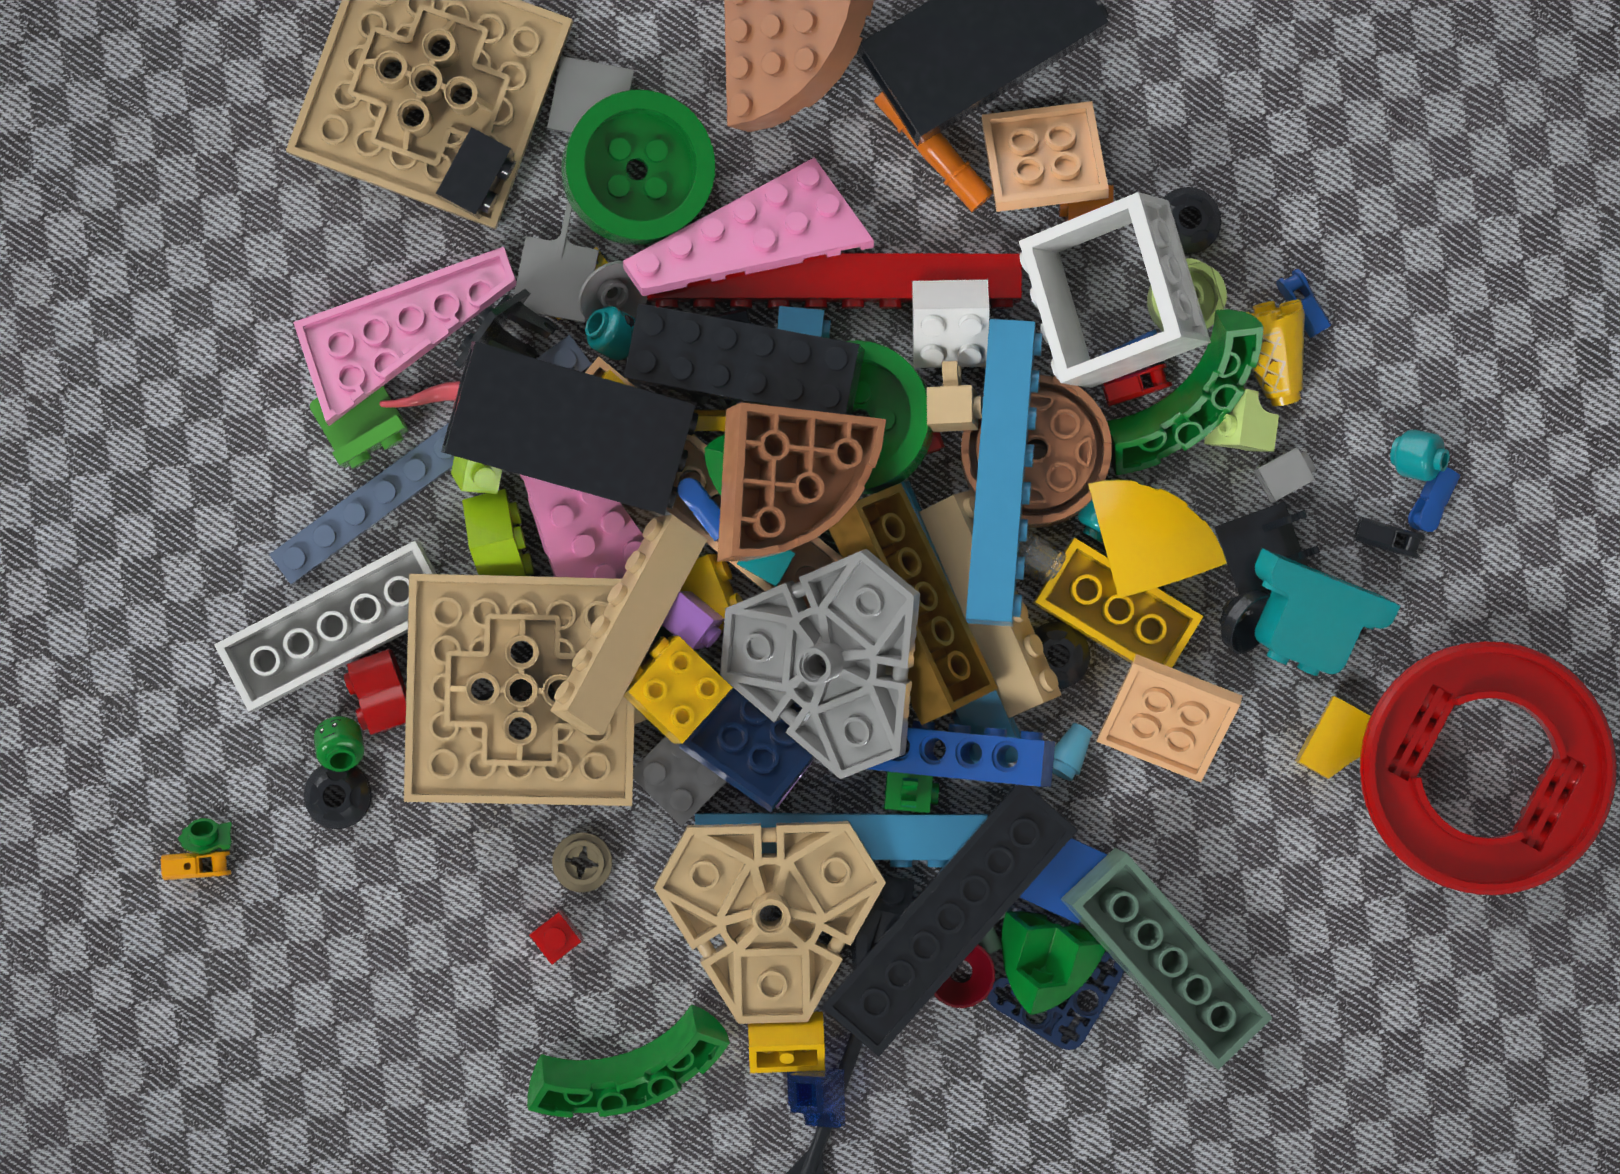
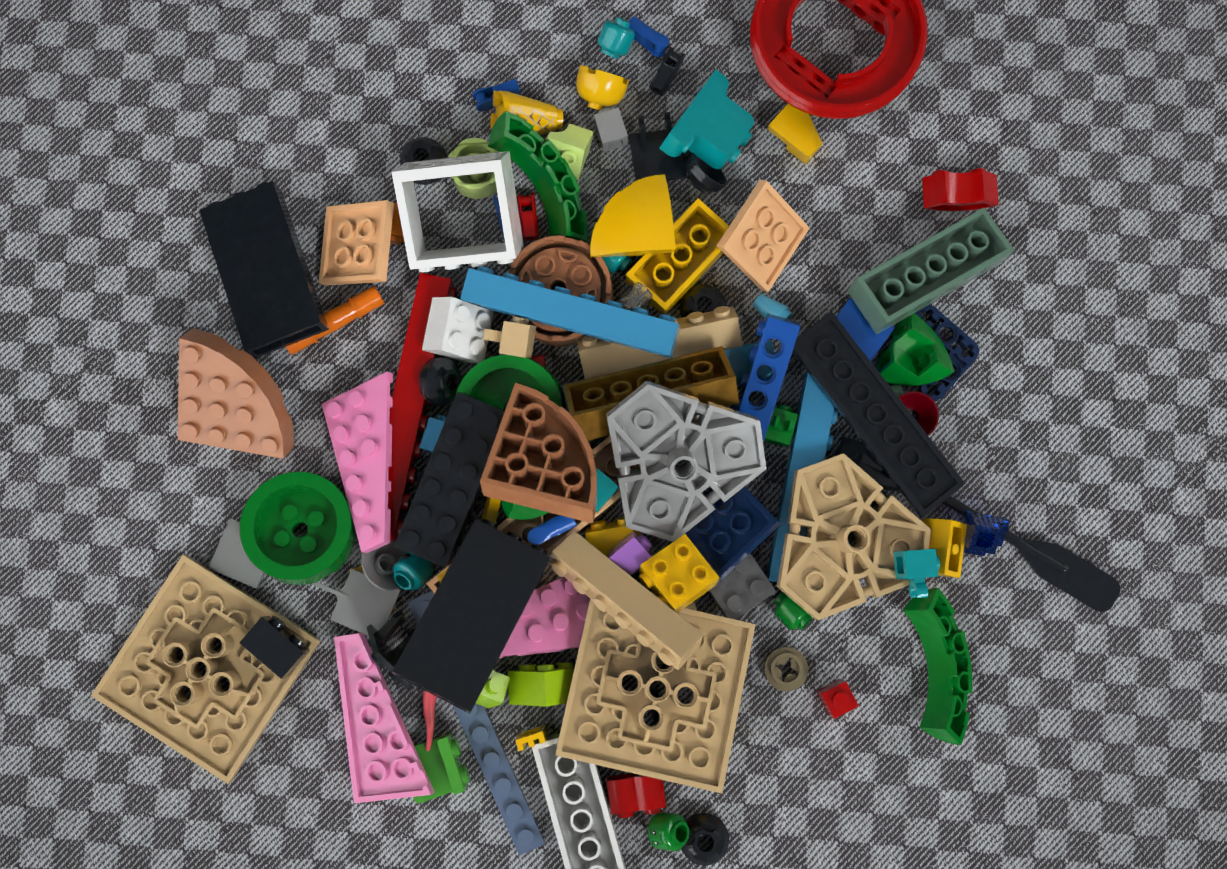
camera: 80 degrees left, 5 degrees down
(425, 538) = (531, 737): none -> yellow tile
(655, 853) = (790, 613): none -> green head
(751, 1006) = (916, 566): none -> teal brick
(879, 306) = (433, 380): none -> black piece
(1295, 984) = (960, 190): none -> red brick
(1342, 448) = (600, 87): none -> yellow cylinder

